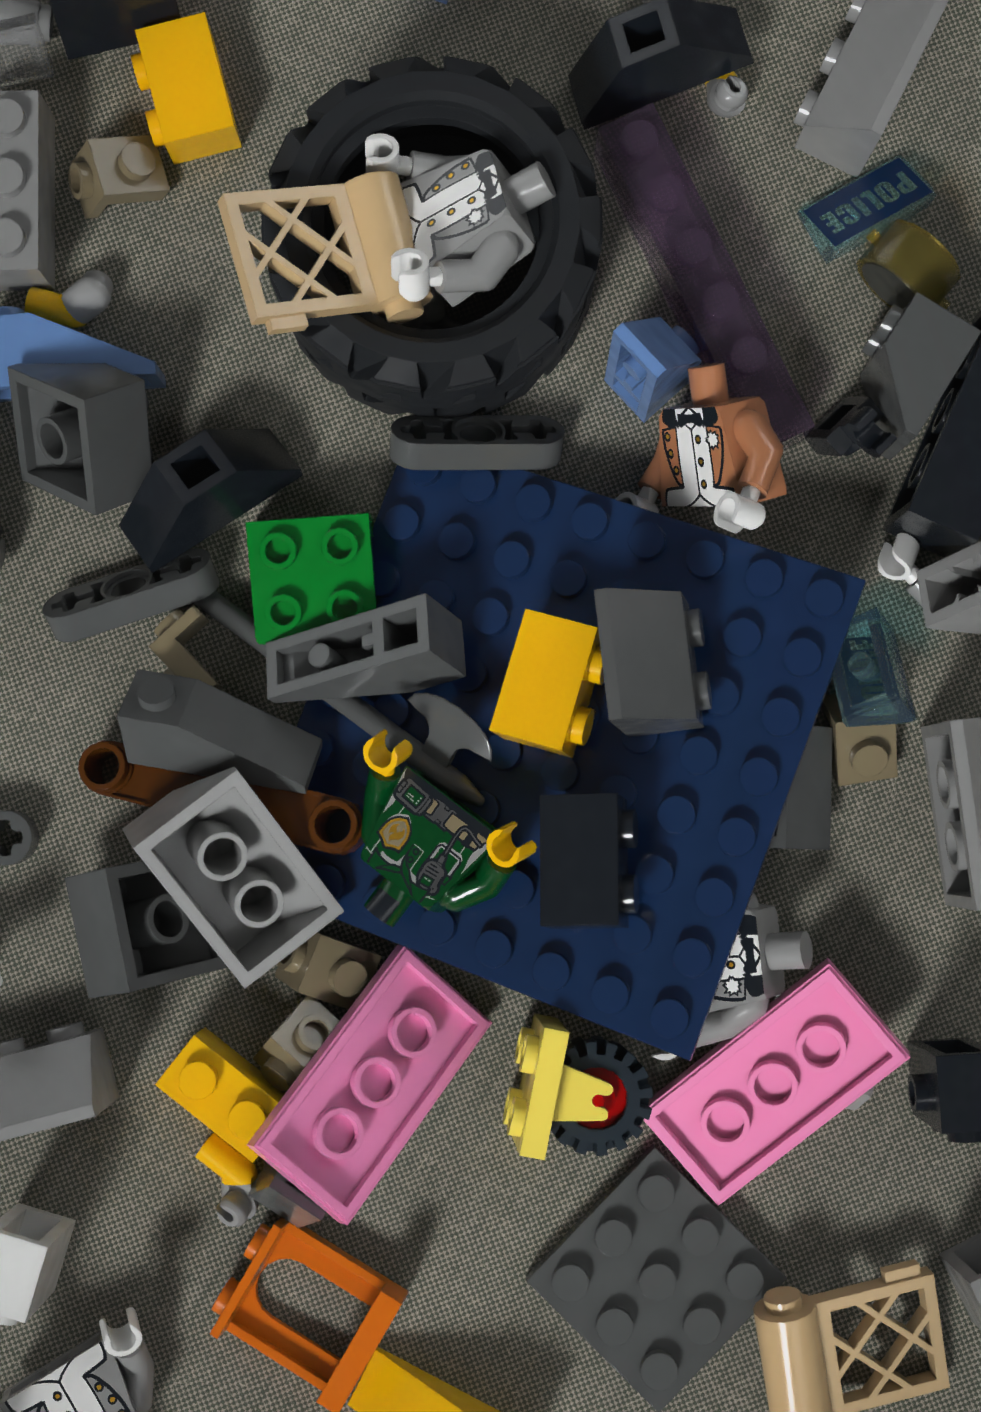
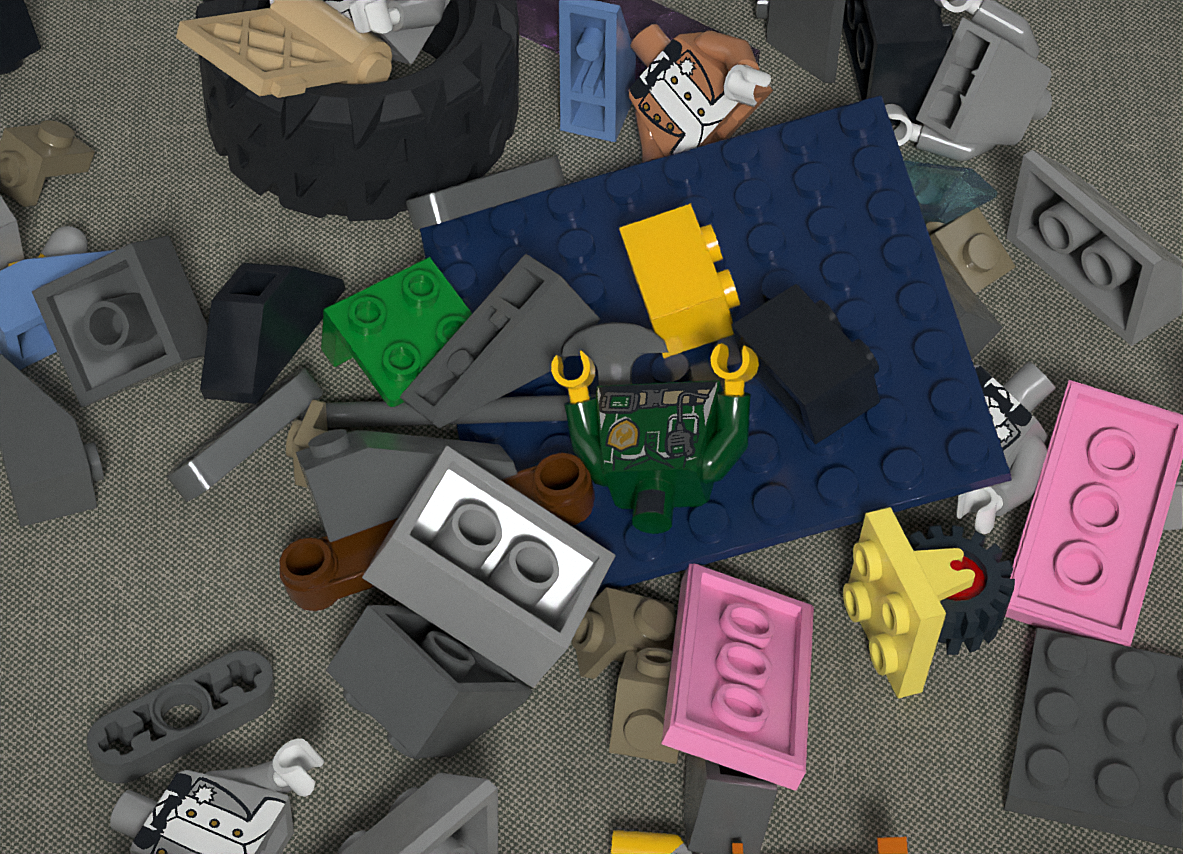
camera: 30 degrees left, 35 degrees down
(187, 89) = (70, 77): yellow brick -> none
(220, 1090) = (605, 774): yellow brick -> none
(651, 661) = (752, 209): dark grey slope -> none
(849, 428) = (786, 57): black plate -> none

